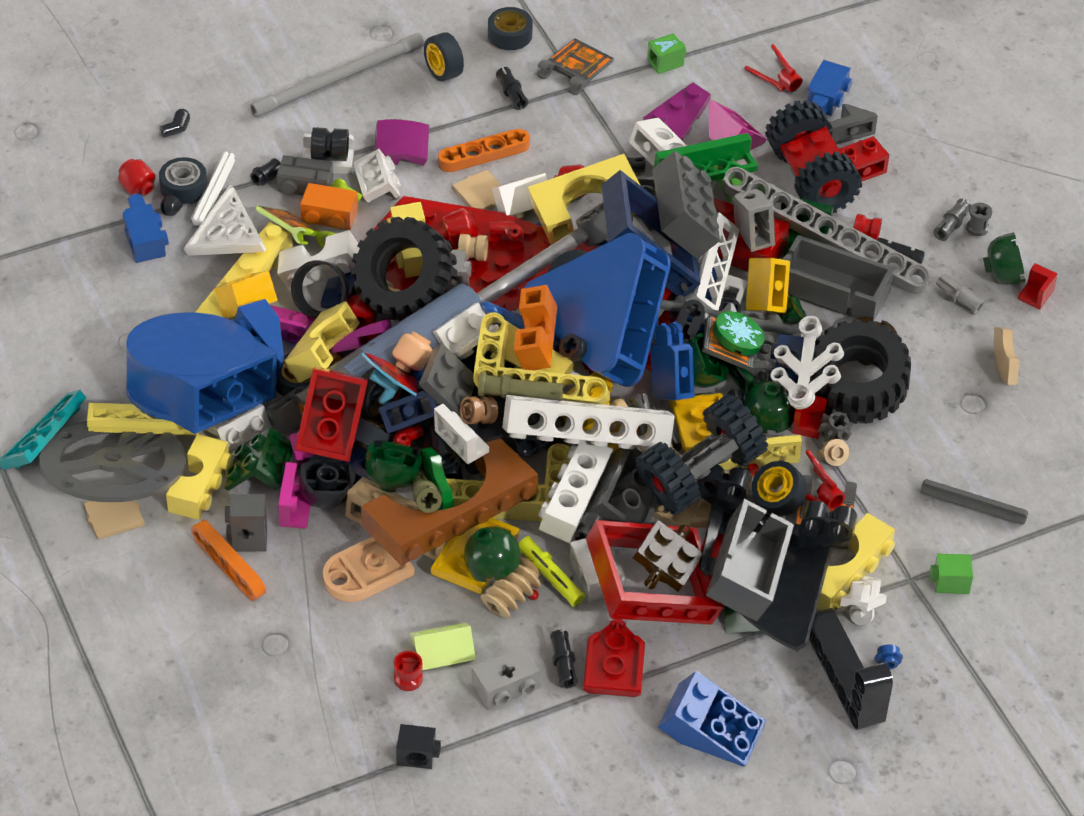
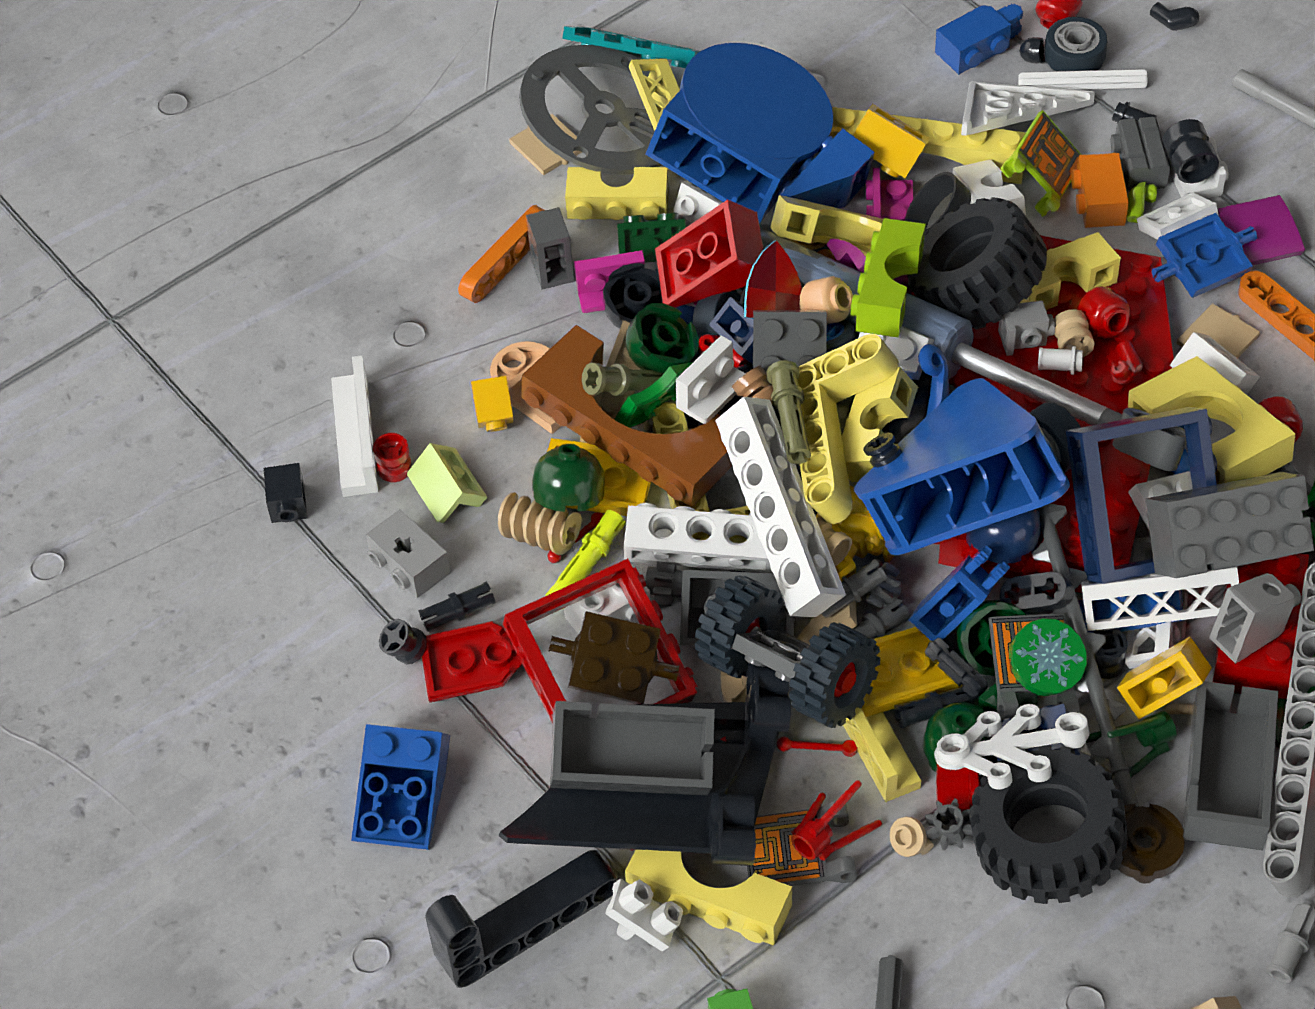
camera: 80 degrees right, 5 degrees up
(368, 692) = (354, 432): none -> white fence
(384, 594) = (492, 403): none -> yellow brick
(419, 170) = (1204, 254): none -> blue plate
(442, 314) = (893, 253): none -> lime arch
(494, 255) = (1060, 359): none -> white pin
(535, 343) = (916, 397): orange arch -> none
(592, 692) = (402, 641): none -> black wheel
(719, 389) = (956, 668): none -> black axle
(773, 476) = (805, 775): wheel -> none
(889, 654) = (565, 970): blue plate -> none

